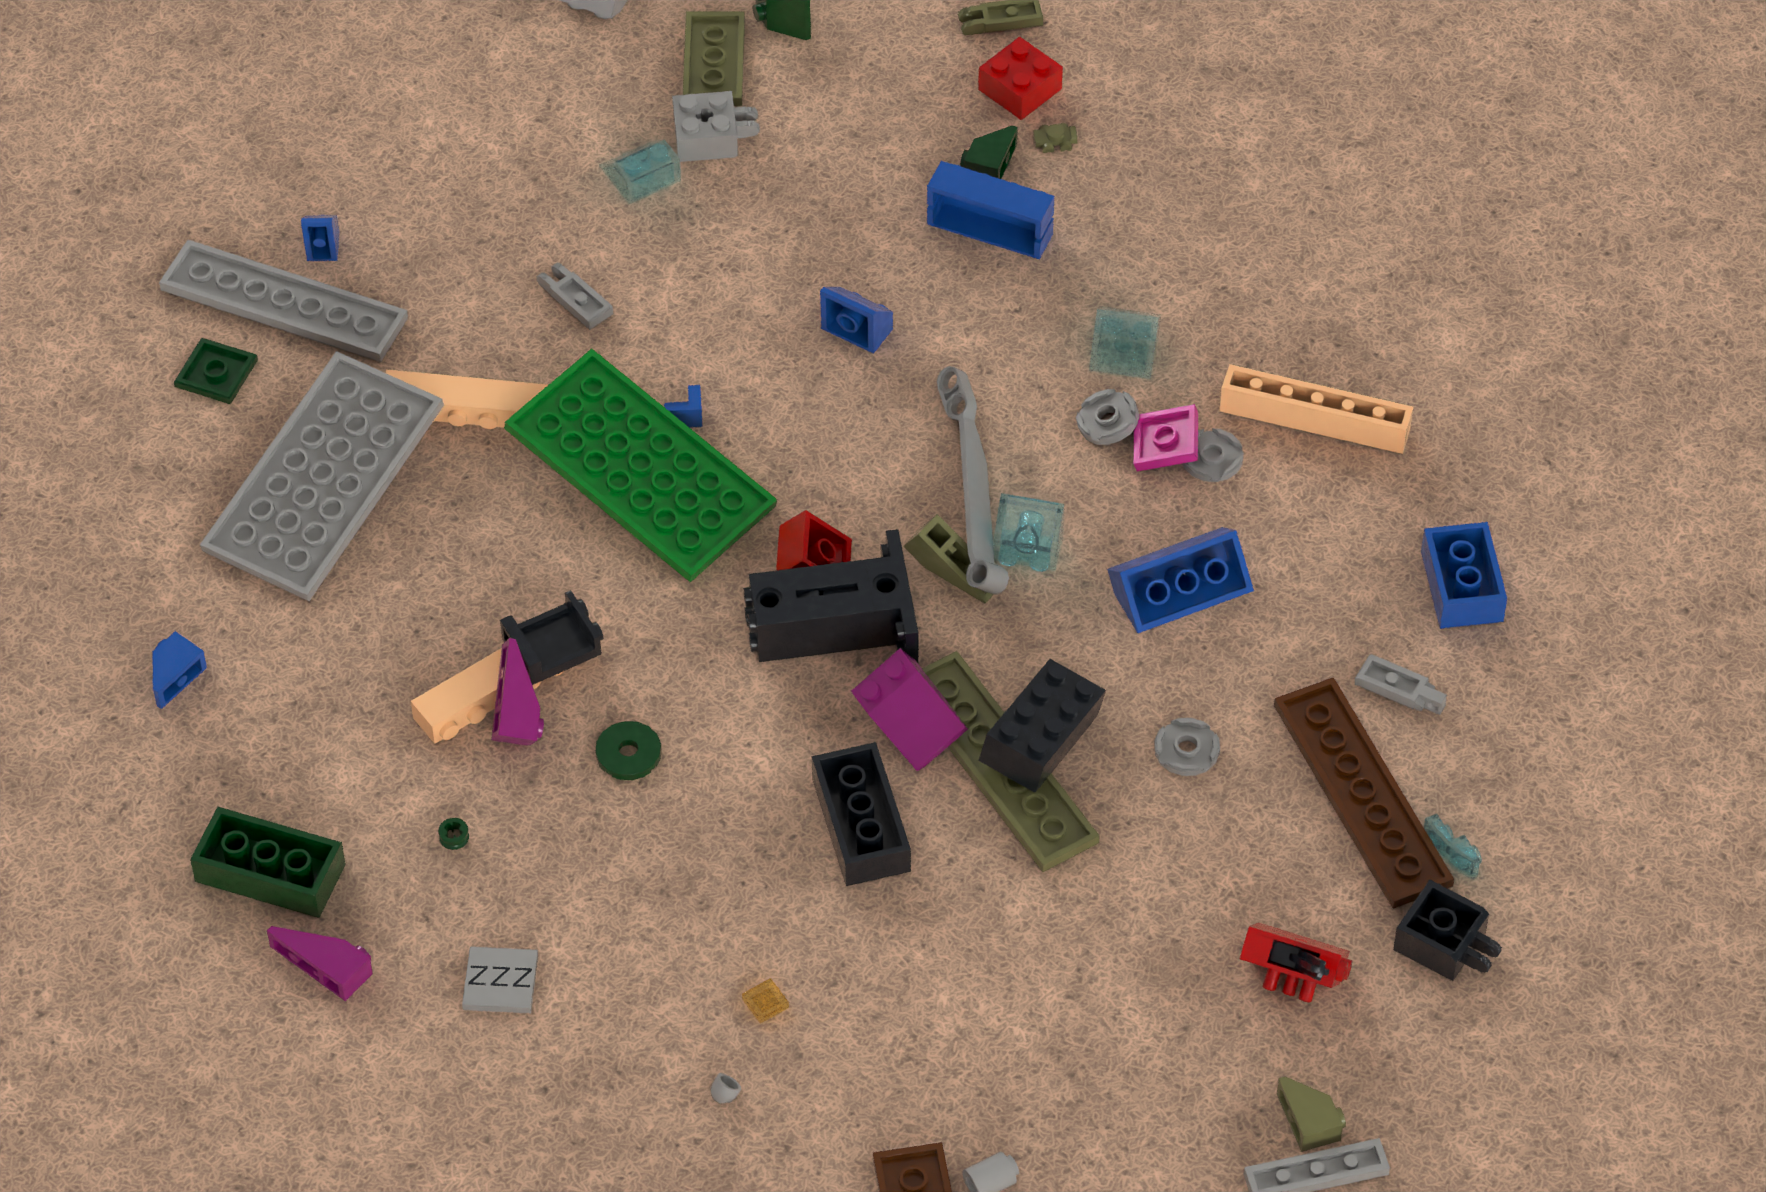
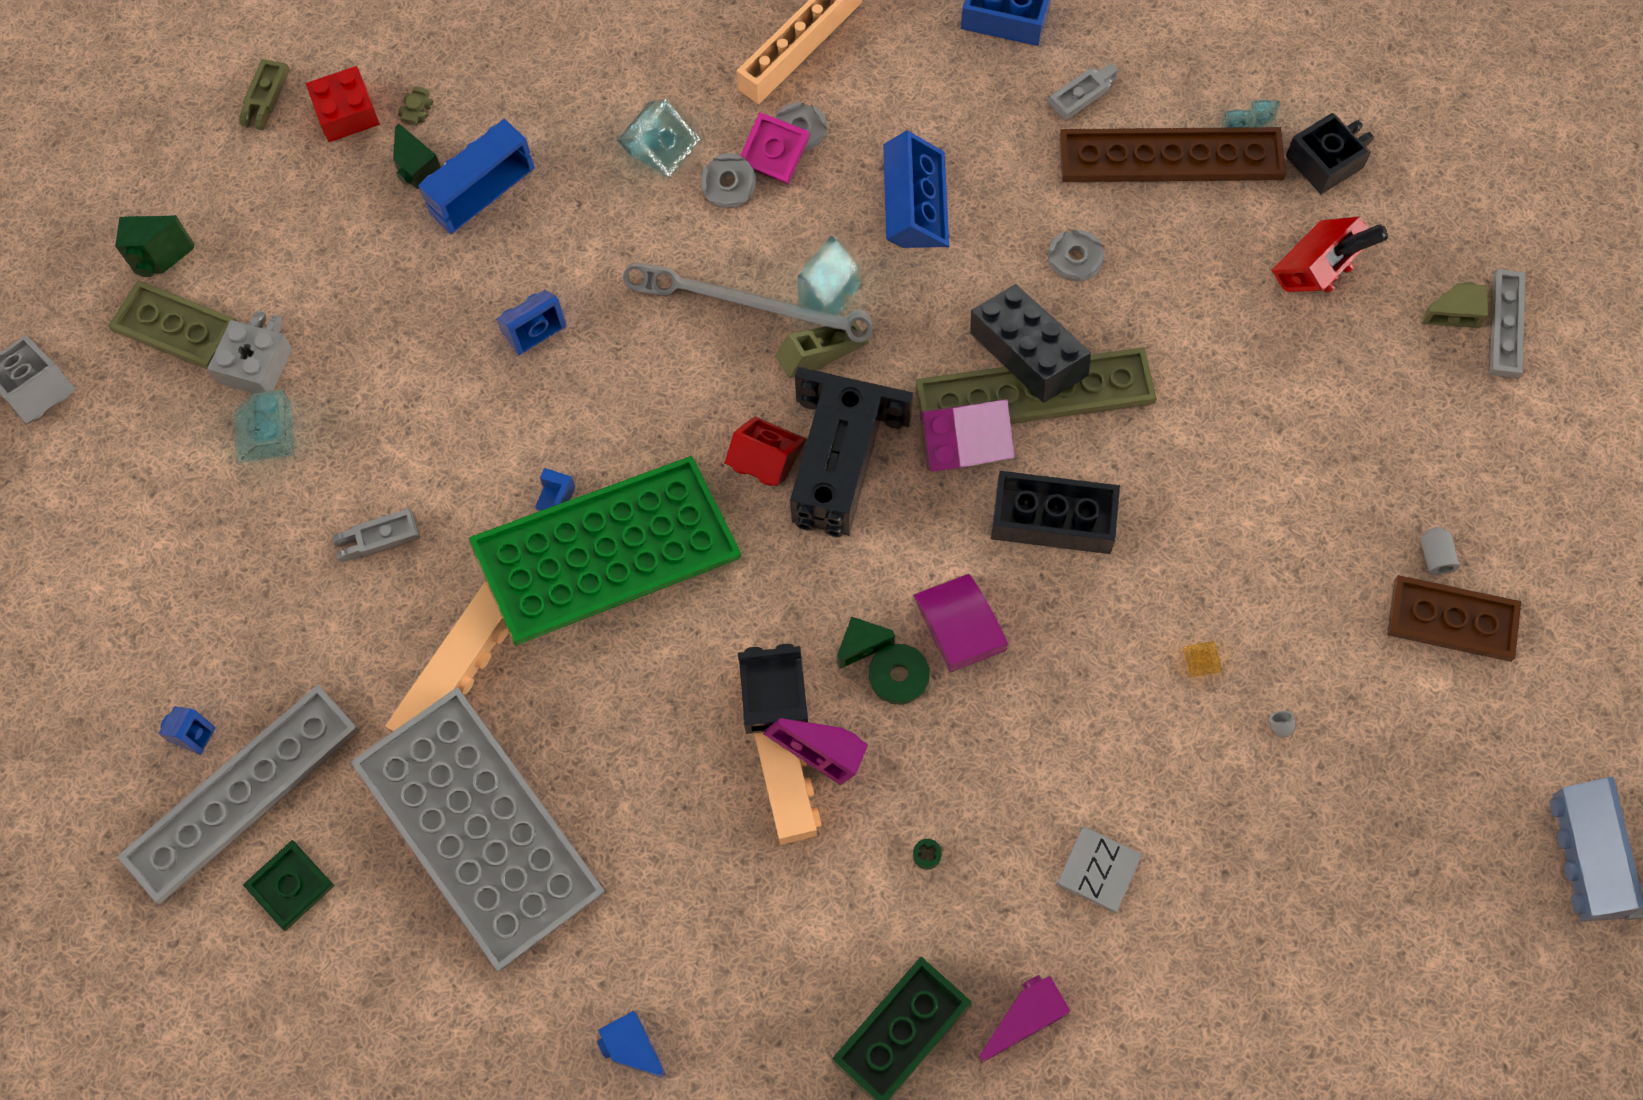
camera: 65 degrees left, 15 degrees up
(641, 702) = (862, 641): none -> dark green slope
(702, 779) = (961, 622): none -> magenta slope

